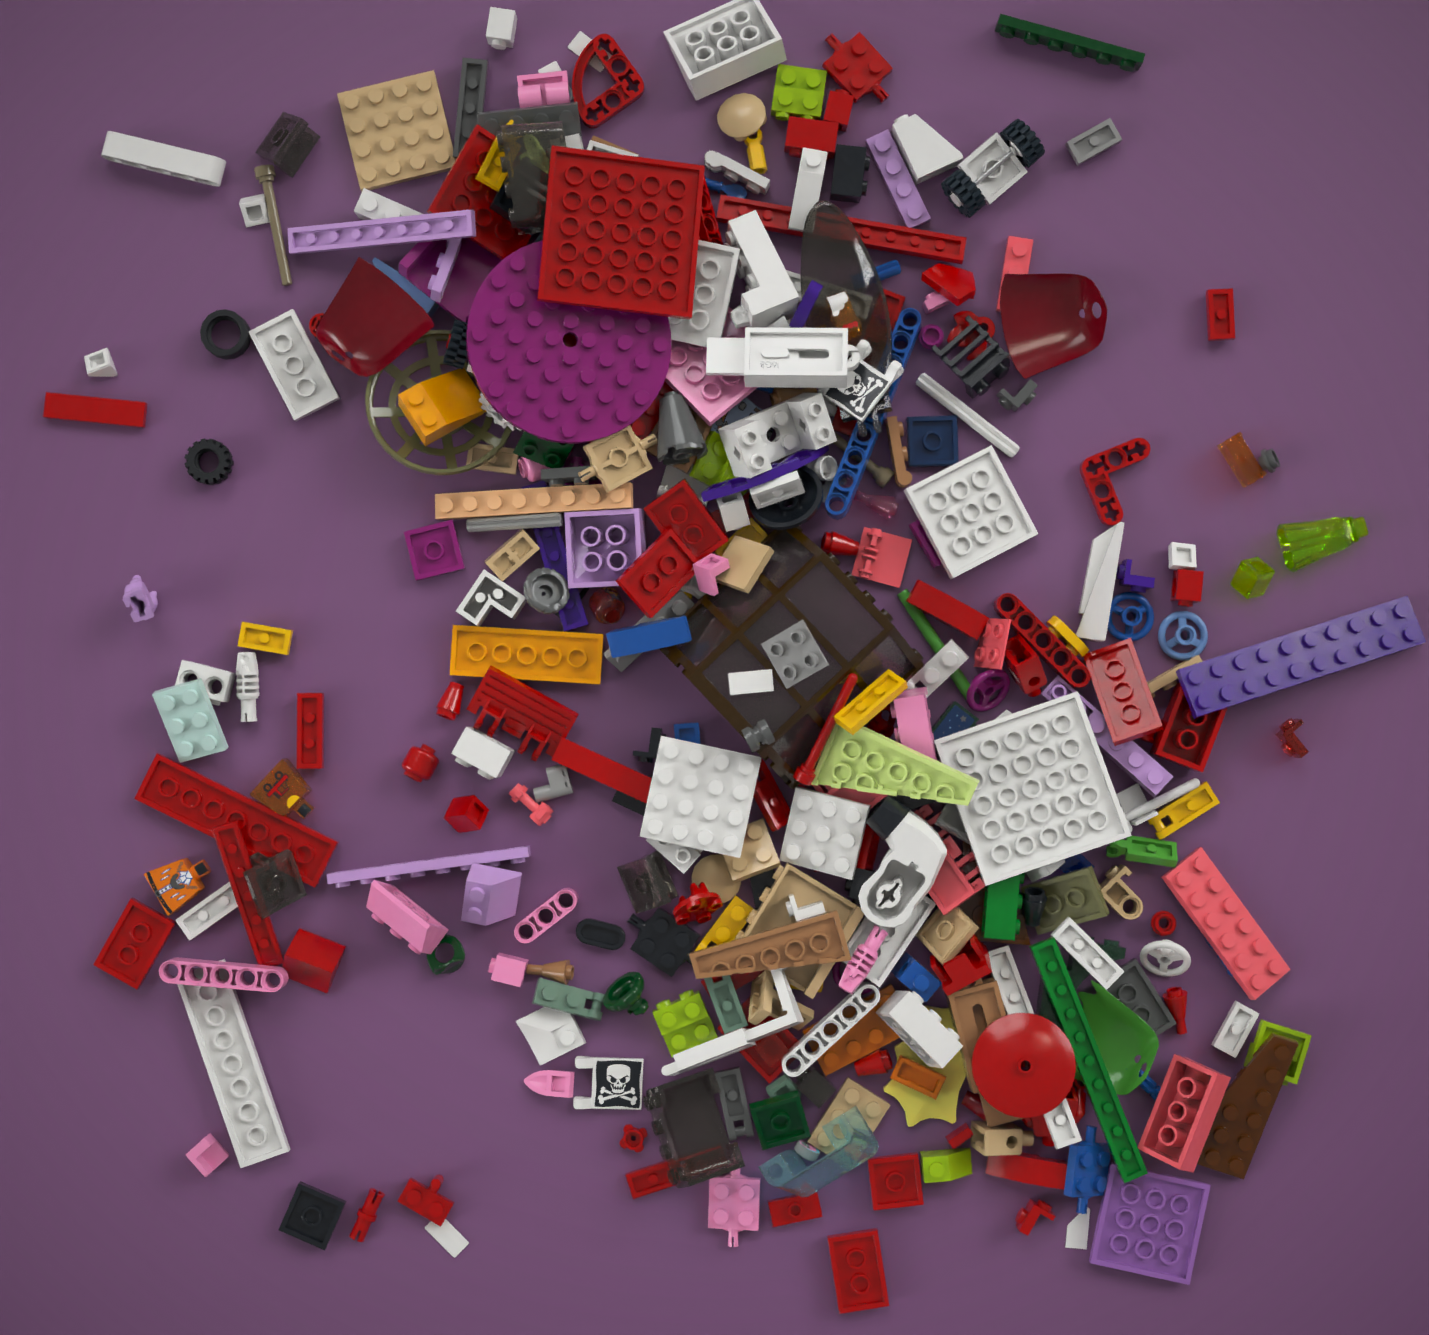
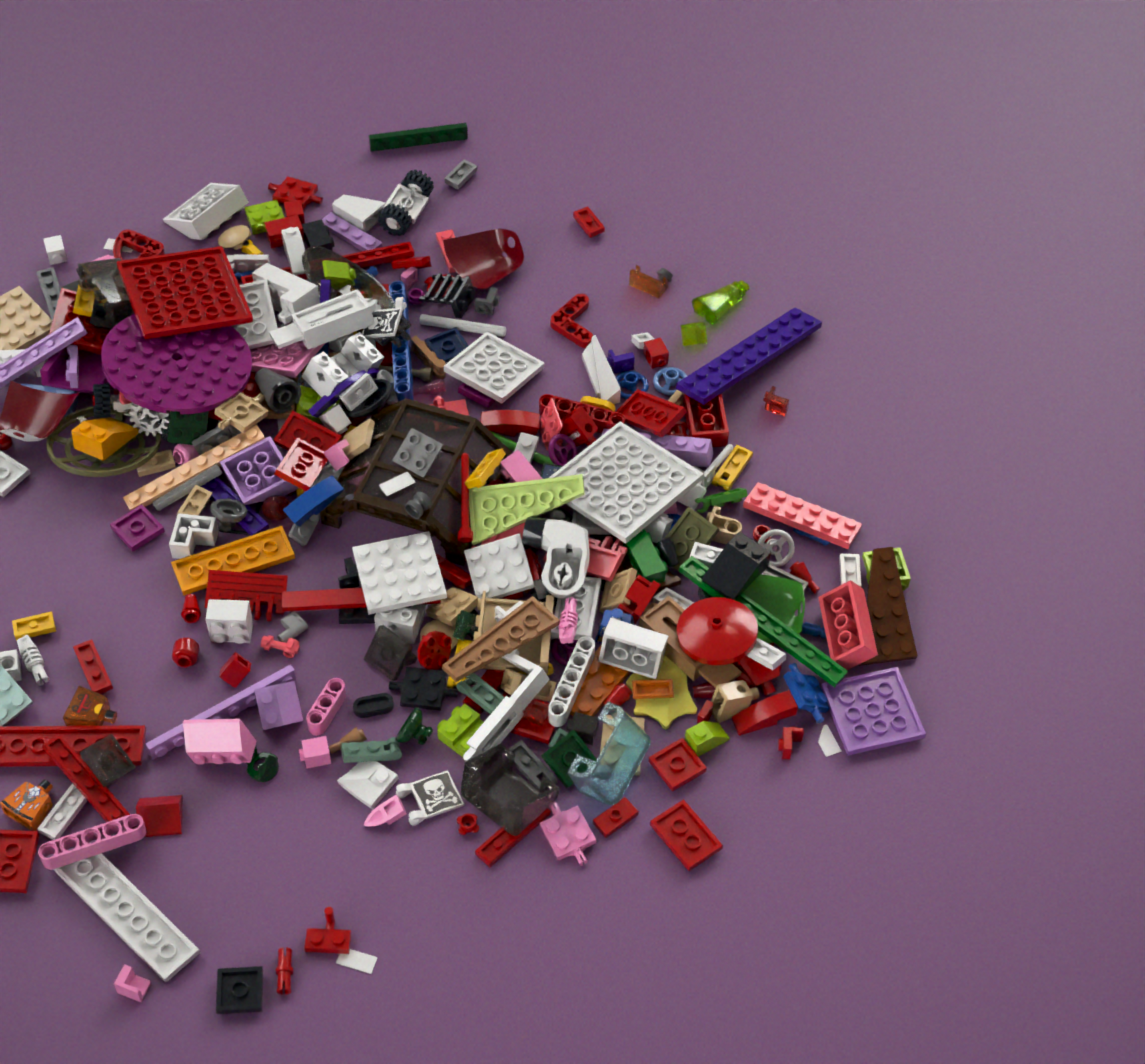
camera: 25 degrees left, 35 degrees down
(748, 889) = (463, 624): none -> clear green cone
(840, 273) = (339, 273): none -> lime slope
(1095, 988) = (737, 566): none -> black slope

